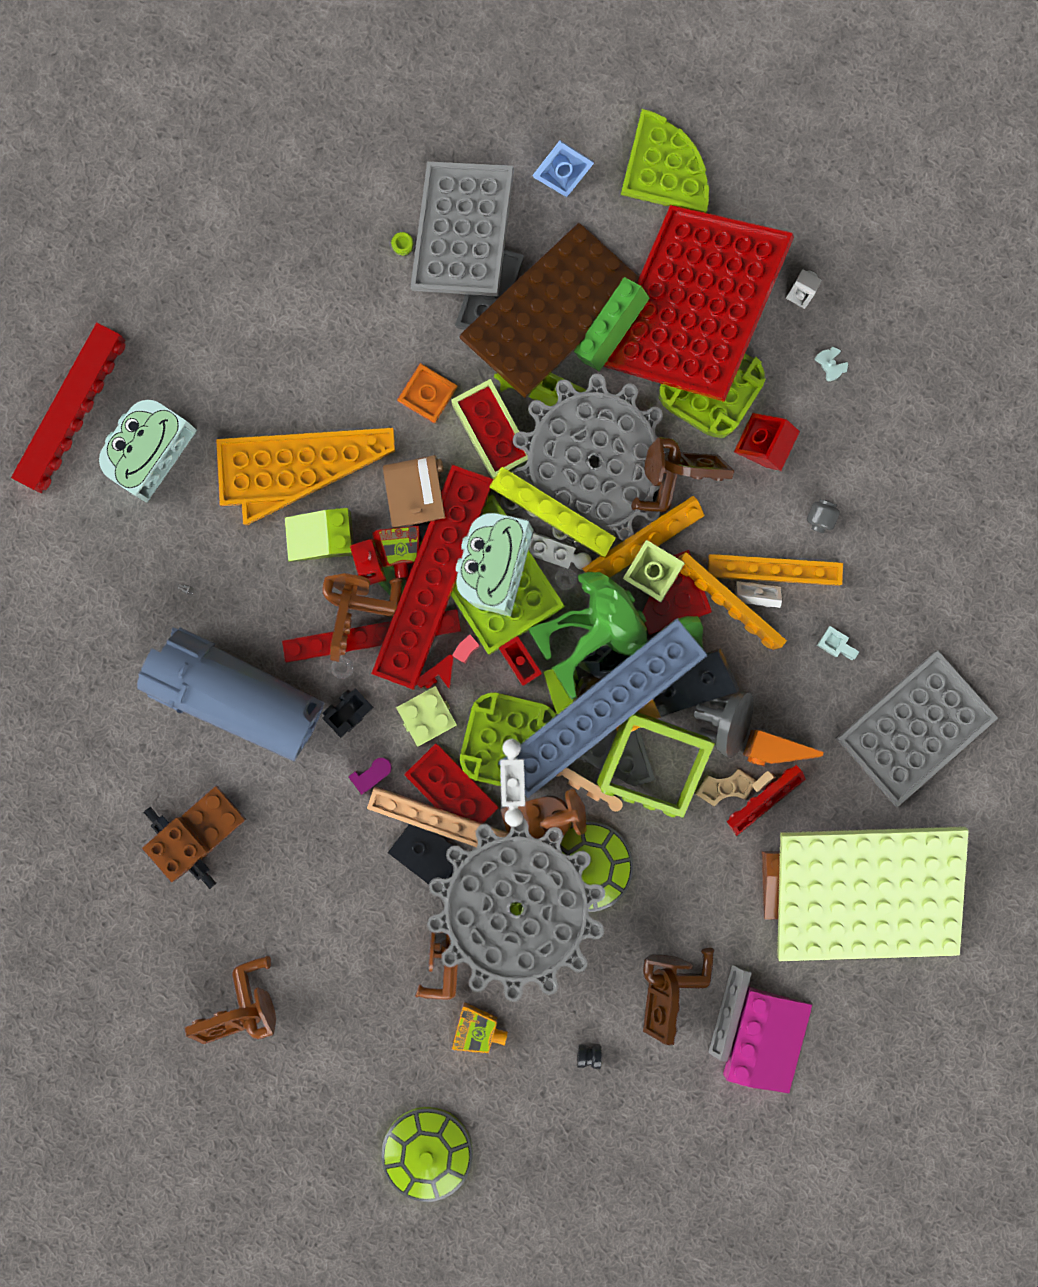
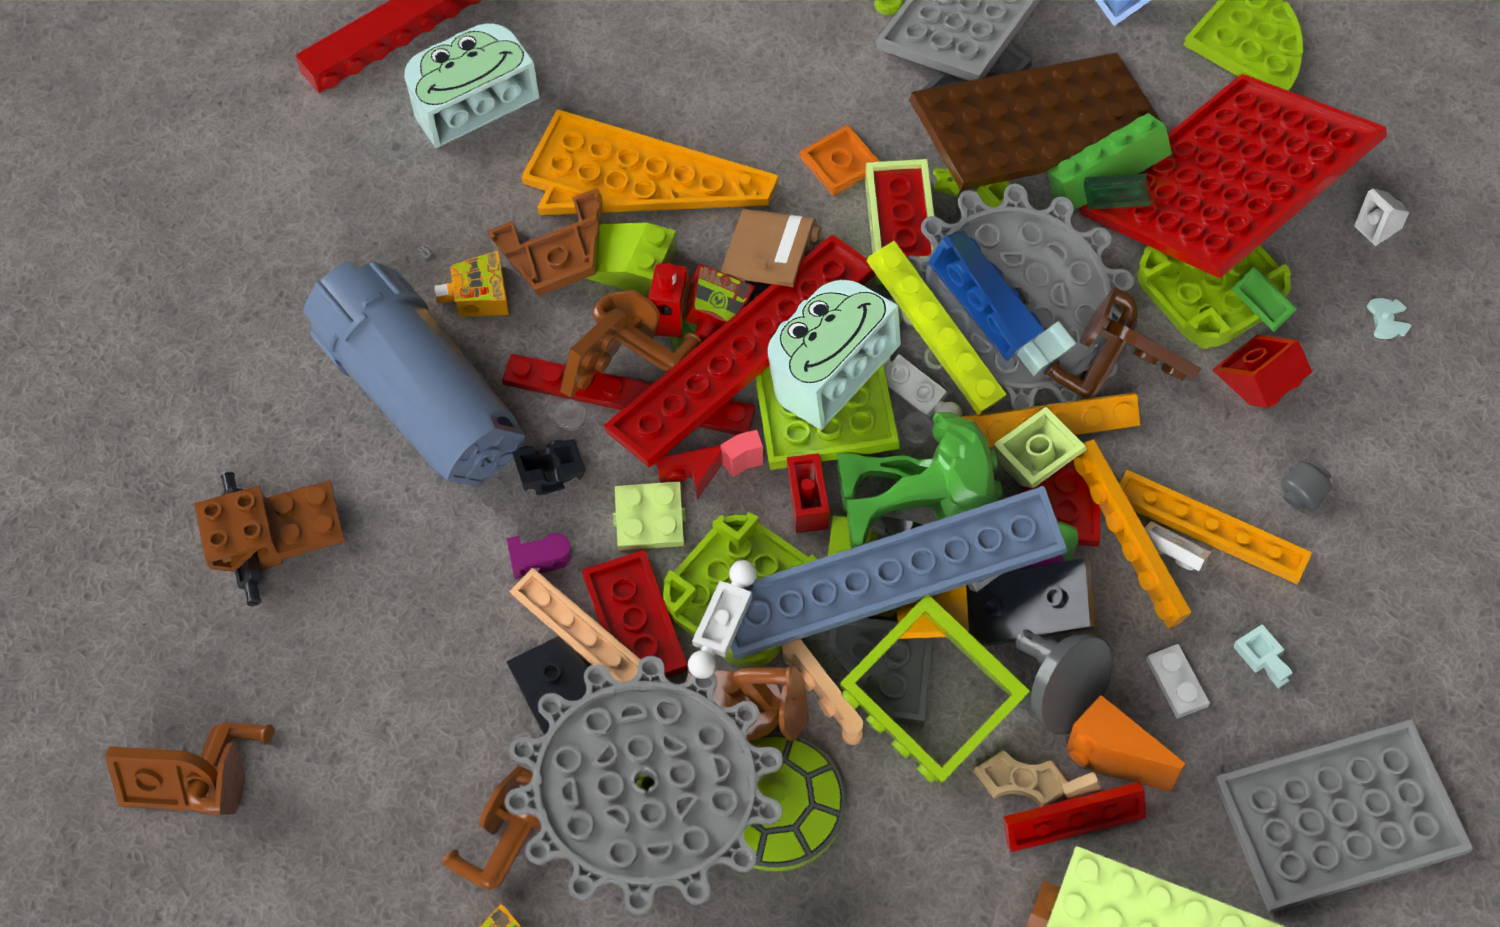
camera: 25 degrees right, 25 degrees down
(233, 602) = (476, 287): none -> torso
(277, 557) = (559, 255): none -> dark orange wing
(576, 476) = (984, 294): none -> blue wedge
(627, 350) = (1117, 191): none -> clear green plate
(628, 492) = (1046, 348): none -> light aqua piece
(752, 391) = (1263, 299): none -> bright green tile
(792, 683) = (1177, 681): none -> white plate

